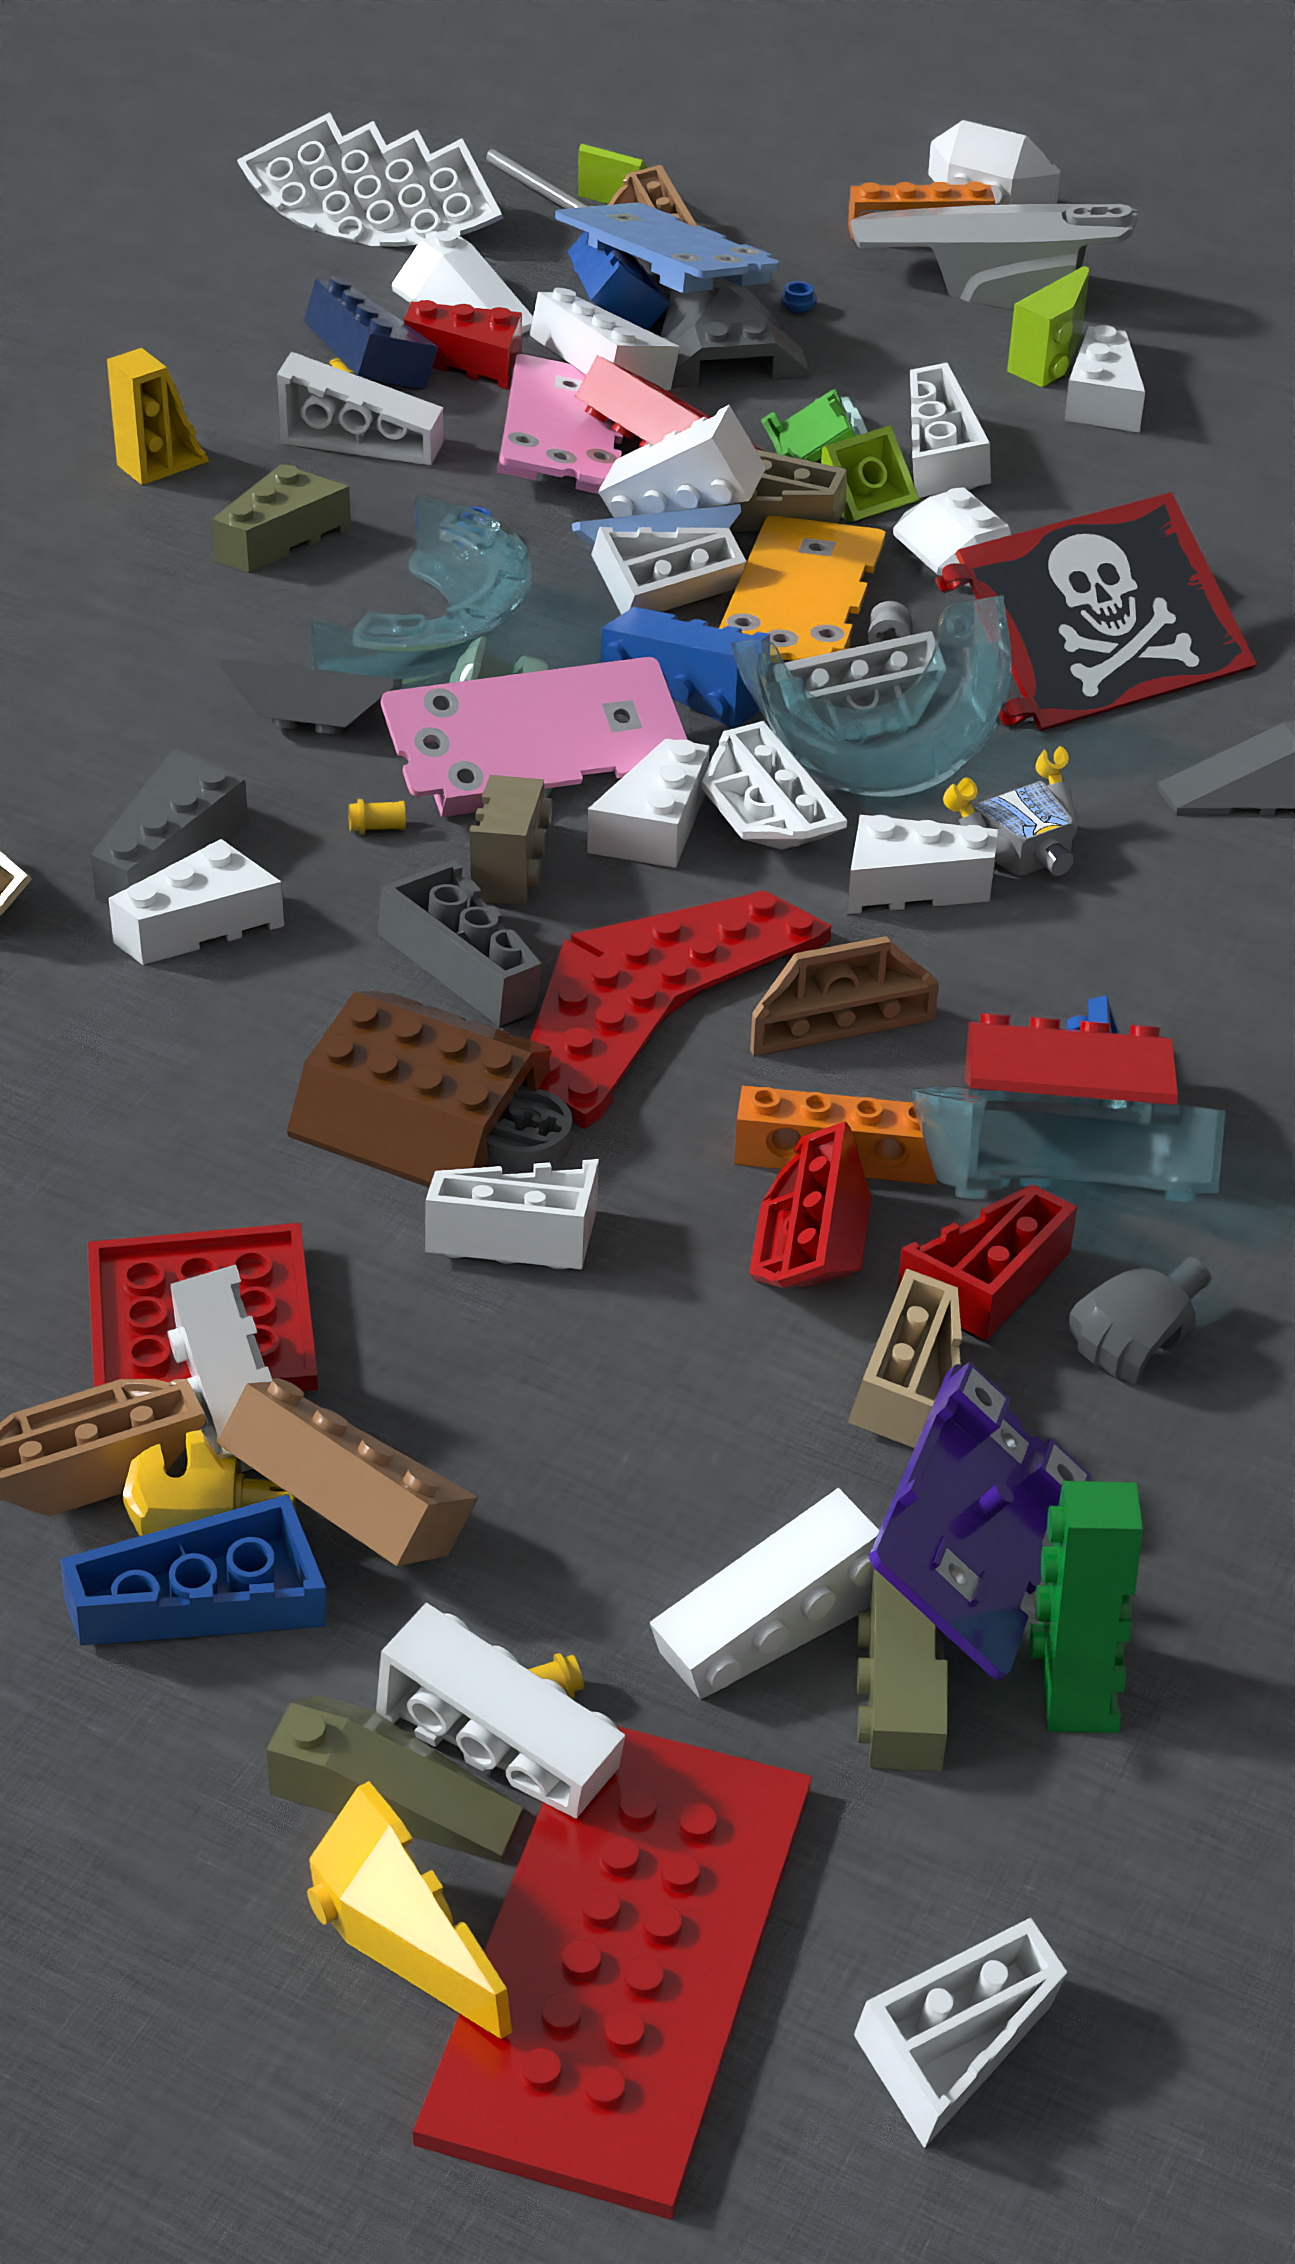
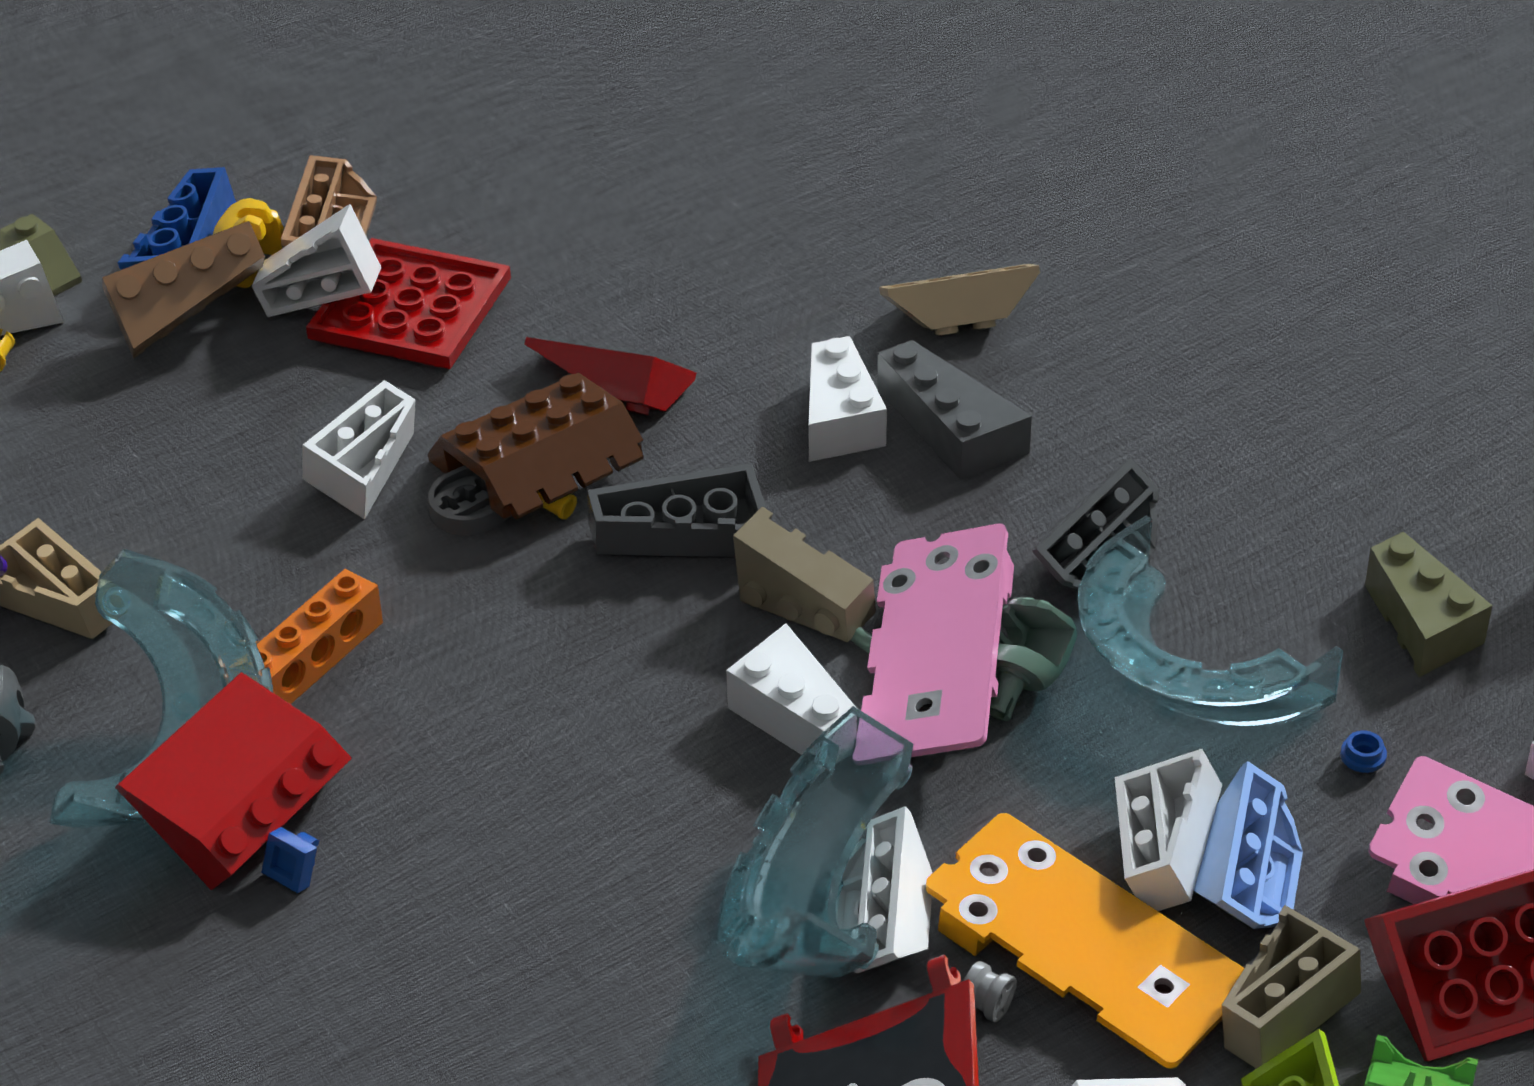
camera: 120 degrees right, 0 degrees up
(242, 1073) = (632, 378): none -> red wedge
(376, 816) = (905, 527): yellow pin -> none
(631, 975) = (596, 624): red wing -> none
(686, 471) = (1298, 872): white wedge -> none
(692, 658) = (1034, 785): blue wedge -> none
(767, 791) = (726, 761): white wedge -> none
(814, 1214) = (254, 598): red wedge -> none
(843, 995) = (457, 716): medium nougat wedge -> none
(920, 861) = (592, 835): white wedge -> none
(998, 1255) = (102, 669): red wedge -> none
(1031, 821) = (592, 933): torso -> none

